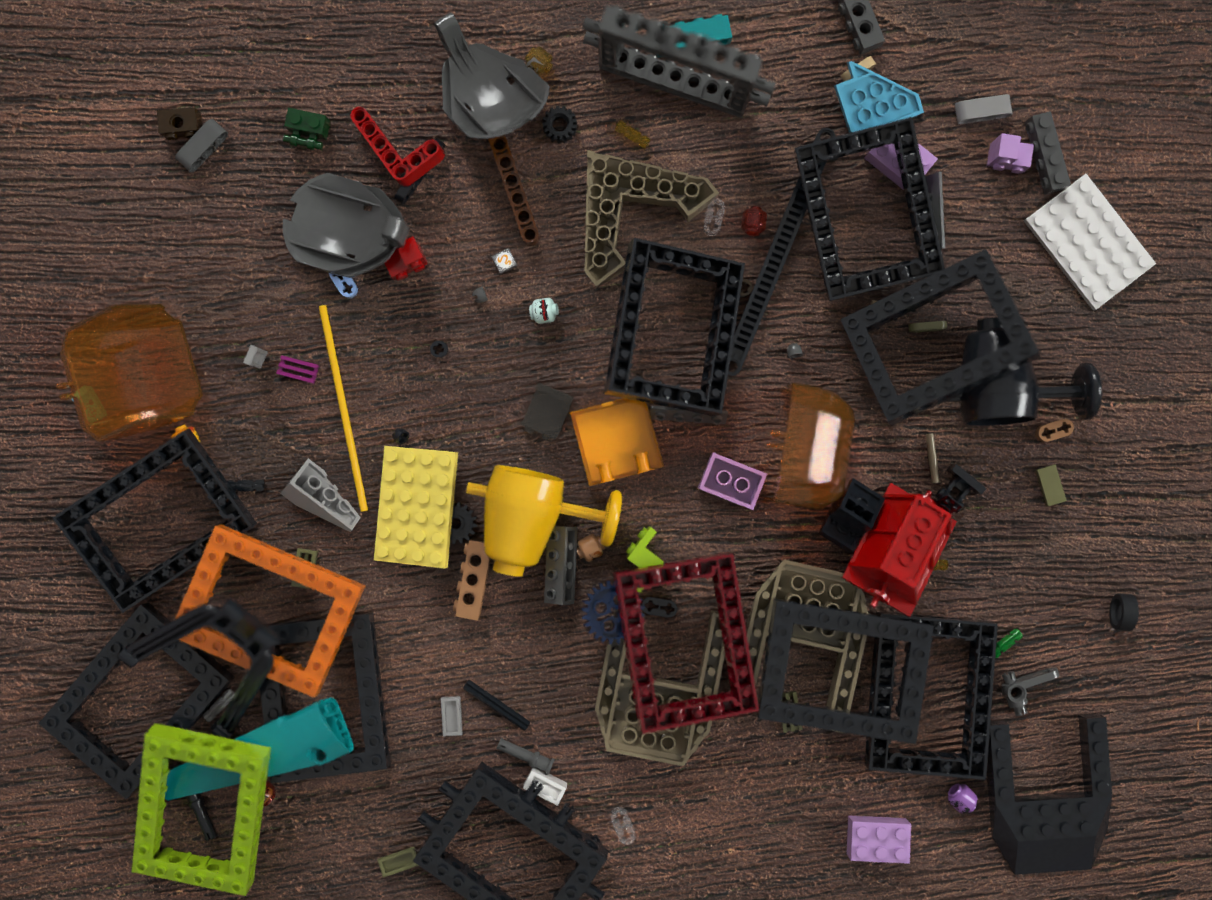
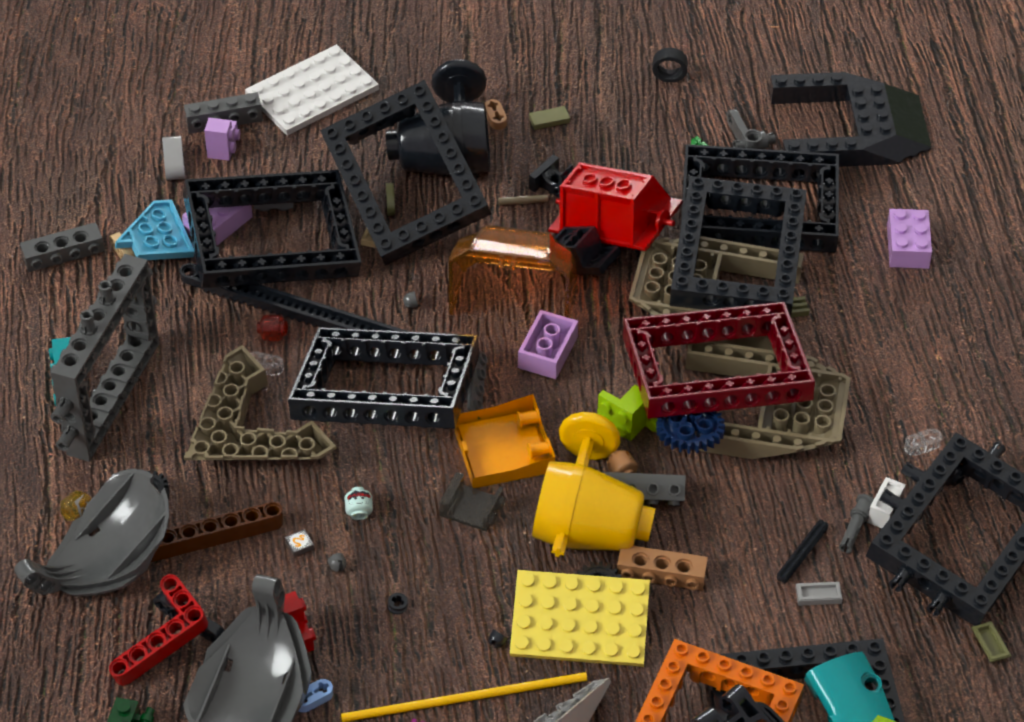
camera: 90 degrees left, 40 degrees down
(632, 134) = (167, 430): clear yellow axle -> none
(962, 798) = (860, 178): medium lavender head -> none

